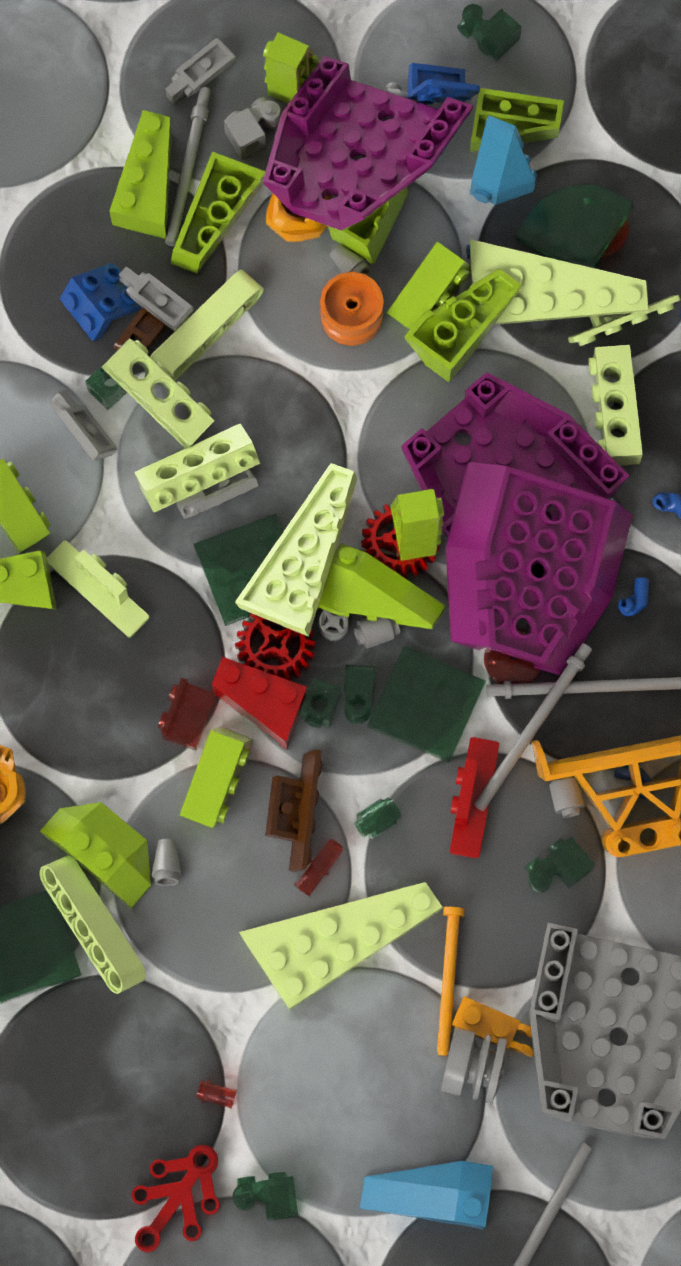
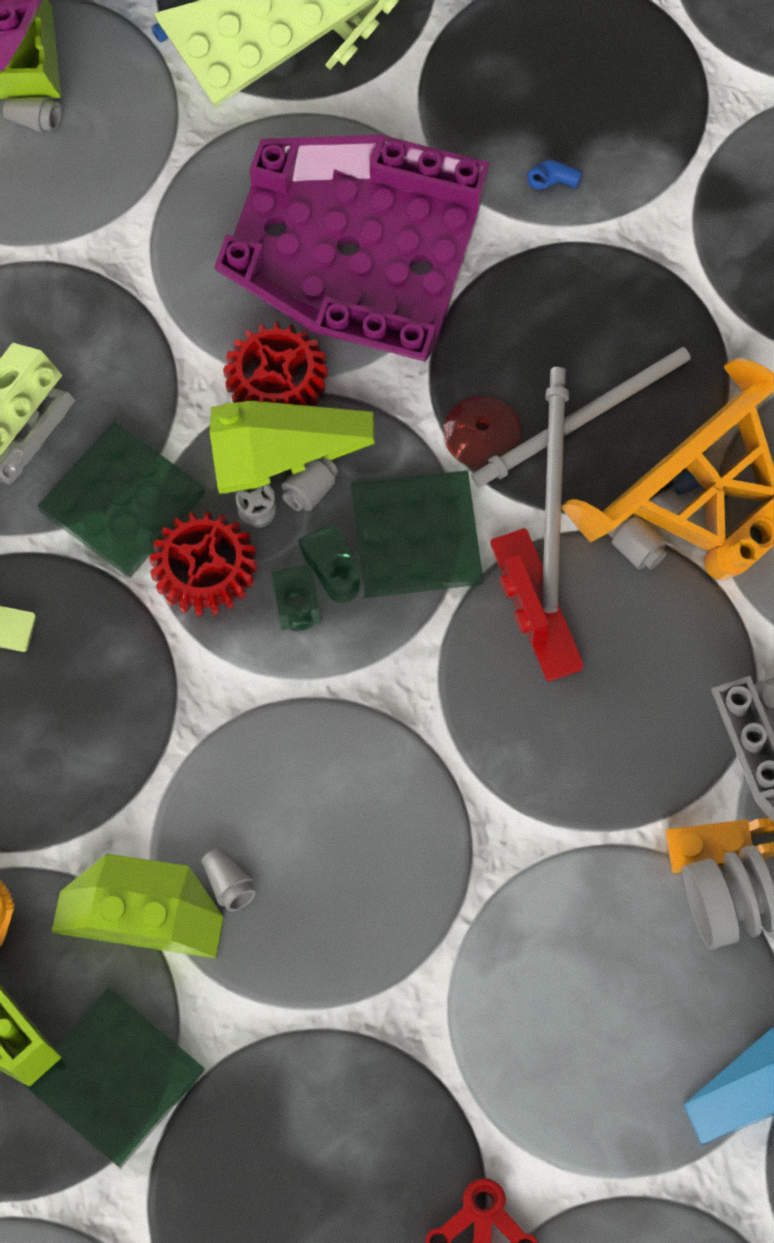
camera: 30 degrees left, 5 degrees down
(92, 924) = (183, 1000): yellowish green beam -> none
(187, 714) = (148, 699): clear red bracket -> none
(213, 1093) = (449, 1113): clear red pin -> none
(216, 777) = (228, 747): lime wedge -> none
(261, 697) = (223, 629): red wedge -> none
(276, 1193) = (596, 1185): clear green brick -> none
(293, 808) = (340, 734): reddish brown bracket -> none
(296, 568) = (178, 458): yellowish green wing -> none
(319, 867) = (409, 781): clear red axle -> none
(321, 946) = (466, 871): yellowish green wing -> none
(351, 308) = (65, 154): orange wheel -> none
(377, 818) = (441, 688): clear green brick -> none
(417, 523) = (289, 324): lime wedge -> none
(430, 285) = (141, 88): lime wedge -> none
(453, 916) = (597, 748): light orange bar -> none
(455, 329) = (196, 115): lime wedge -> none
(489, 558) = (392, 319): magenta wedge -> none
(565, 860) = (686, 614): clear green brick -> none
(616, 362) = (400, 59): yellowish green brick -> none
(638, 600) = (579, 295): blue arm -> none

